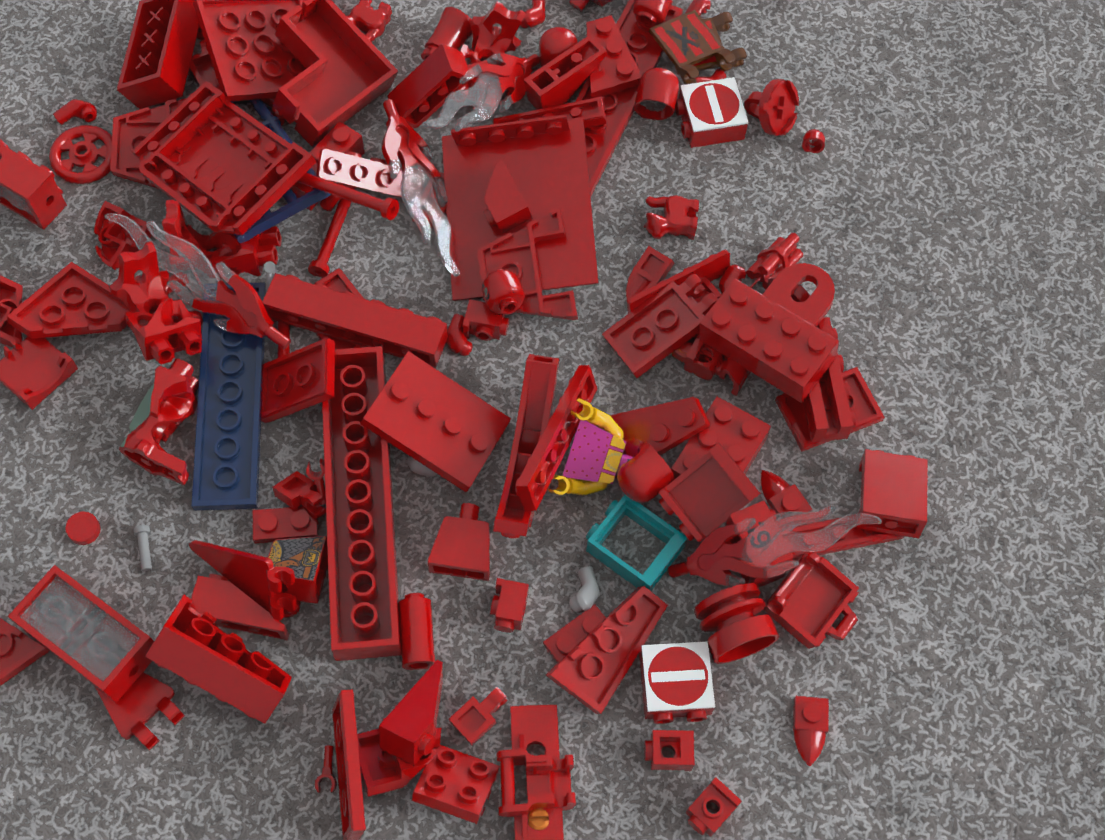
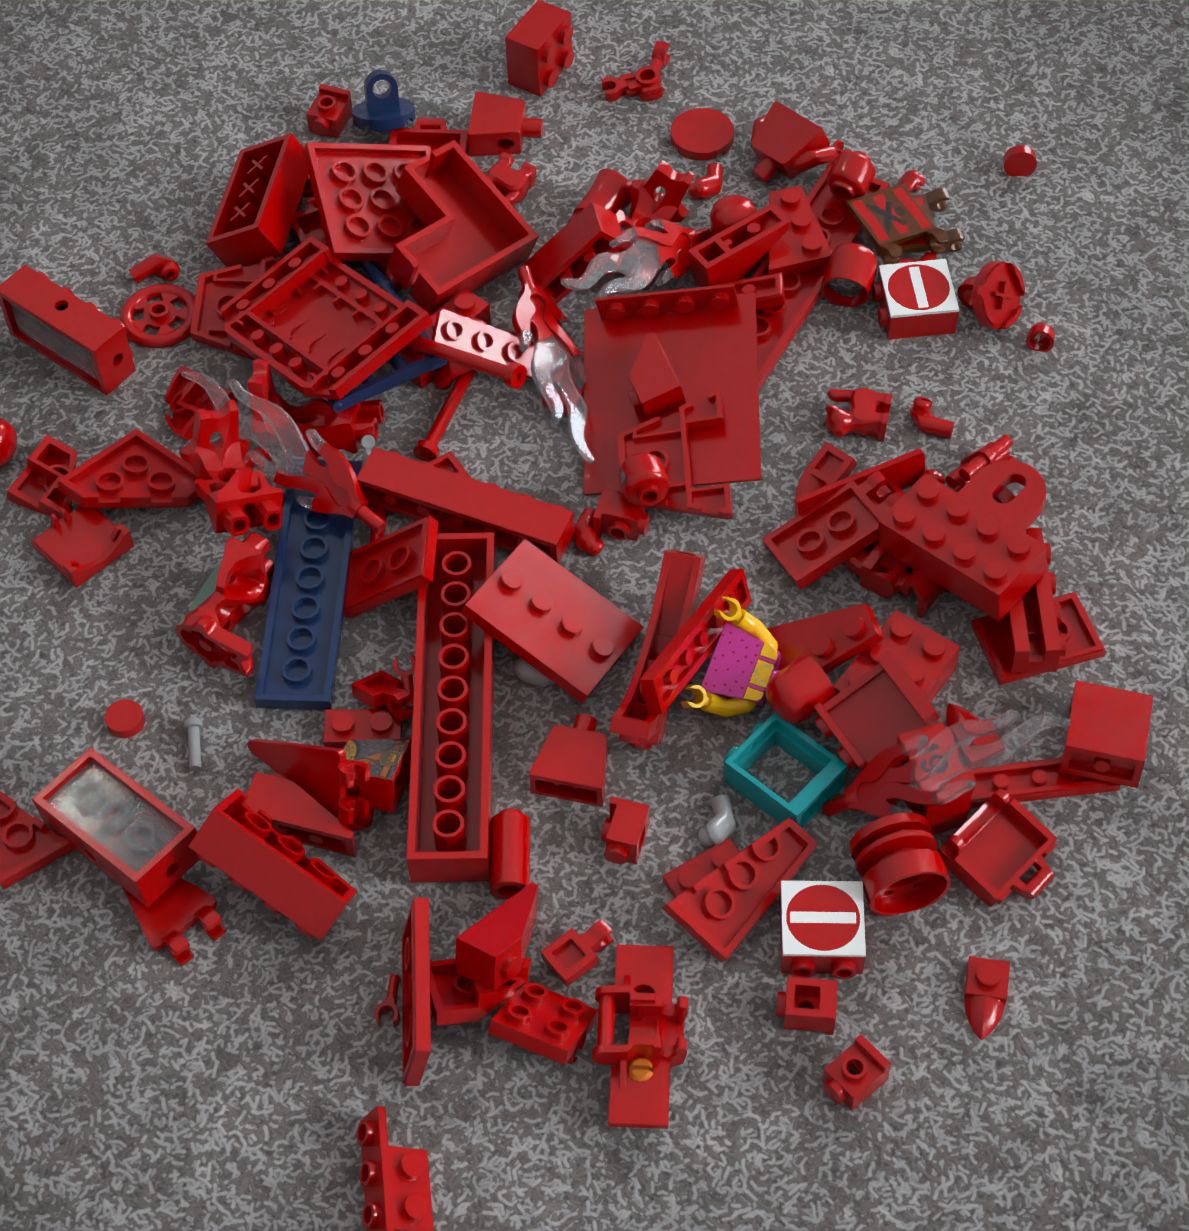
camera: 10 degrees right, 10 degrees down
(727, 220) = (927, 421): none -> red arm

